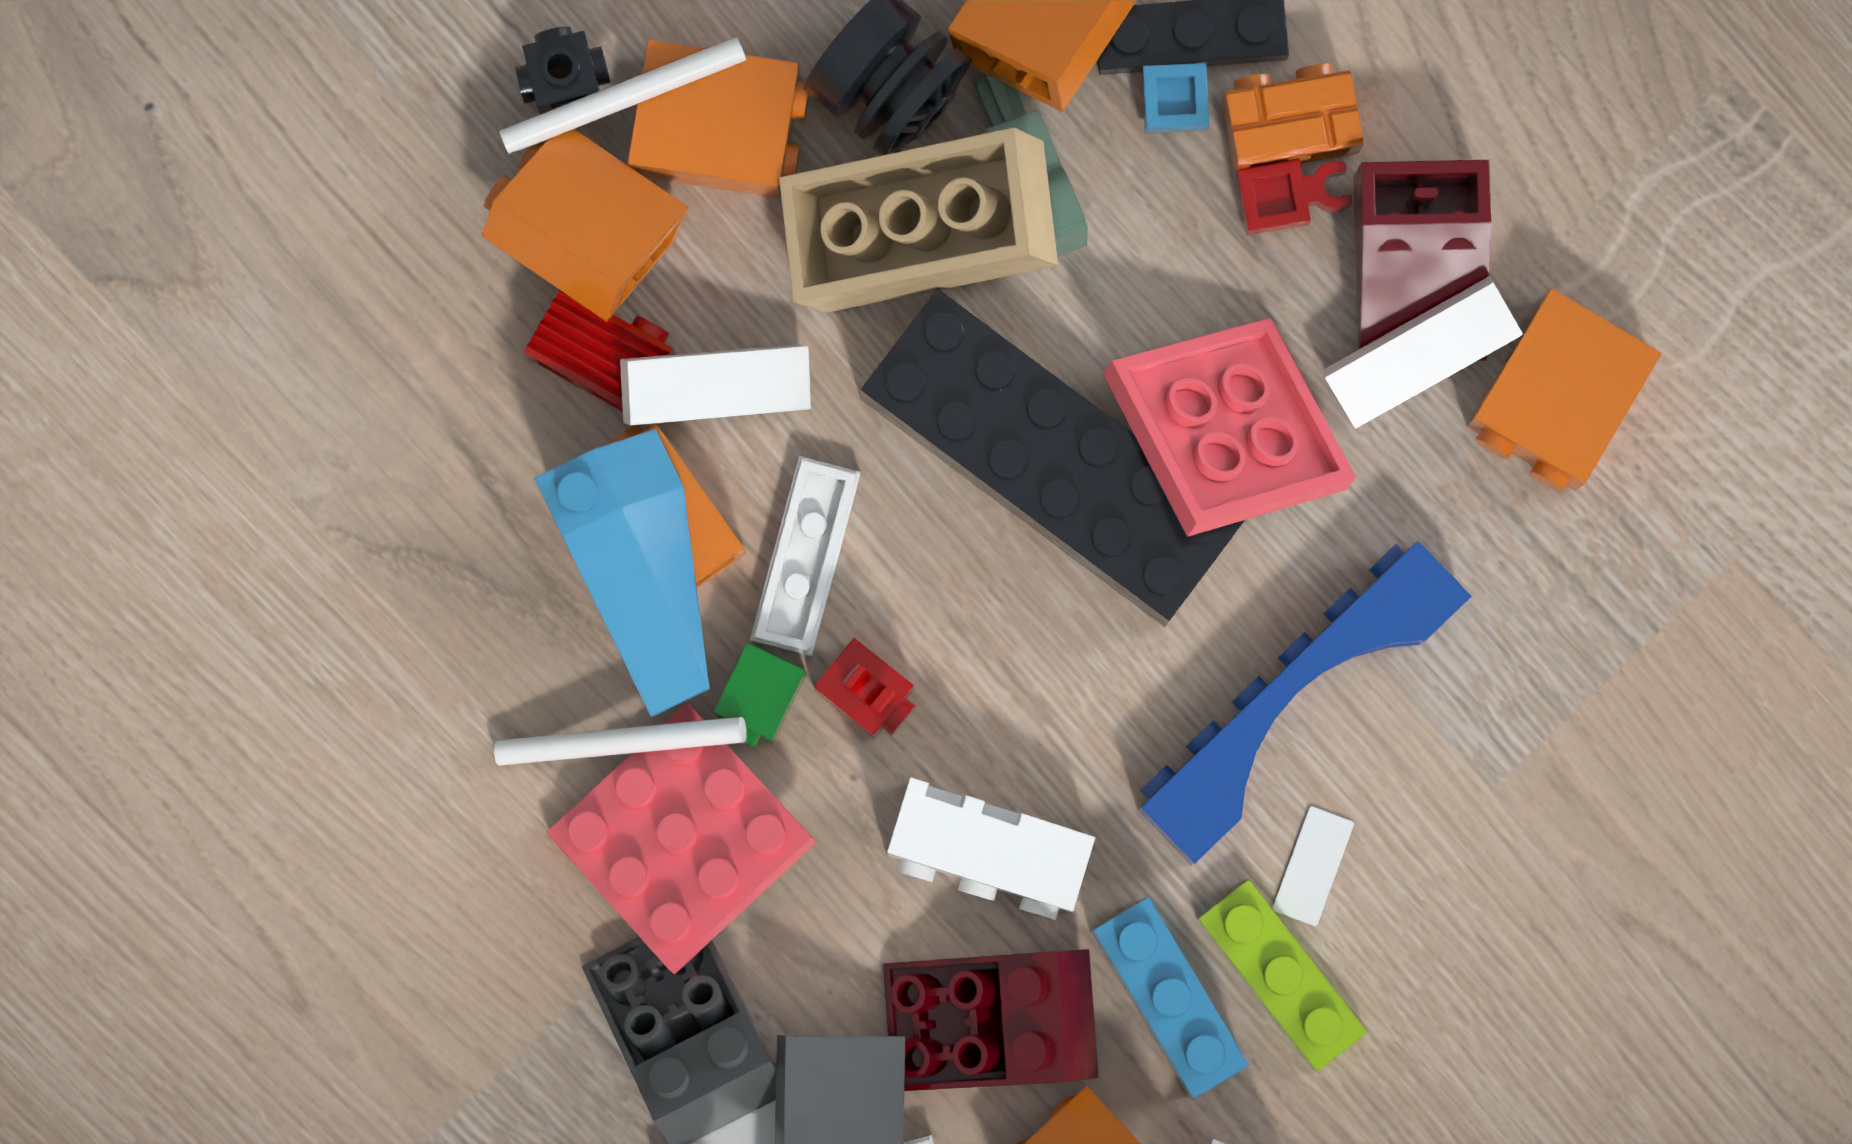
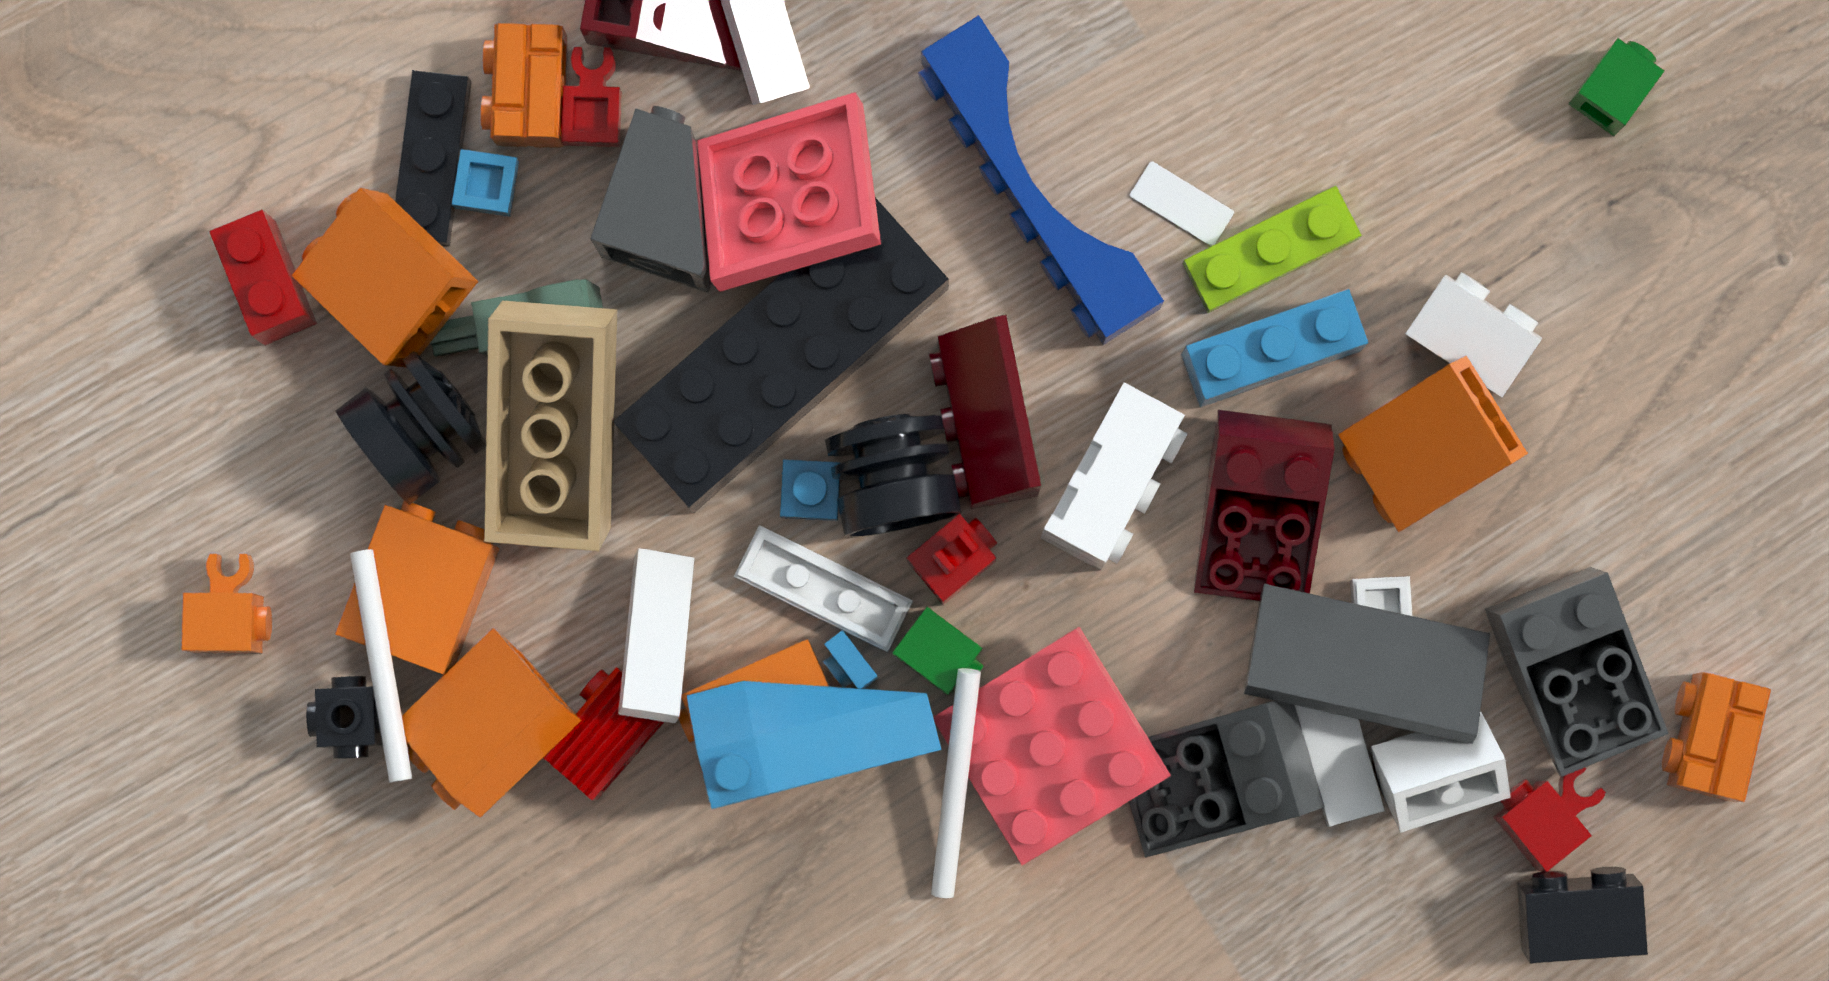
camera: 70 degrees left, 0 degrees up
(728, 598) = (847, 663): none -> dark azure plate
(910, 520) = (809, 490): none -> dark azure plate
(941, 604) = (892, 475): none -> black wheel
(1029, 693) = (986, 414): none -> dark red slope
(1191, 284) = (655, 202): none -> dark grey slope

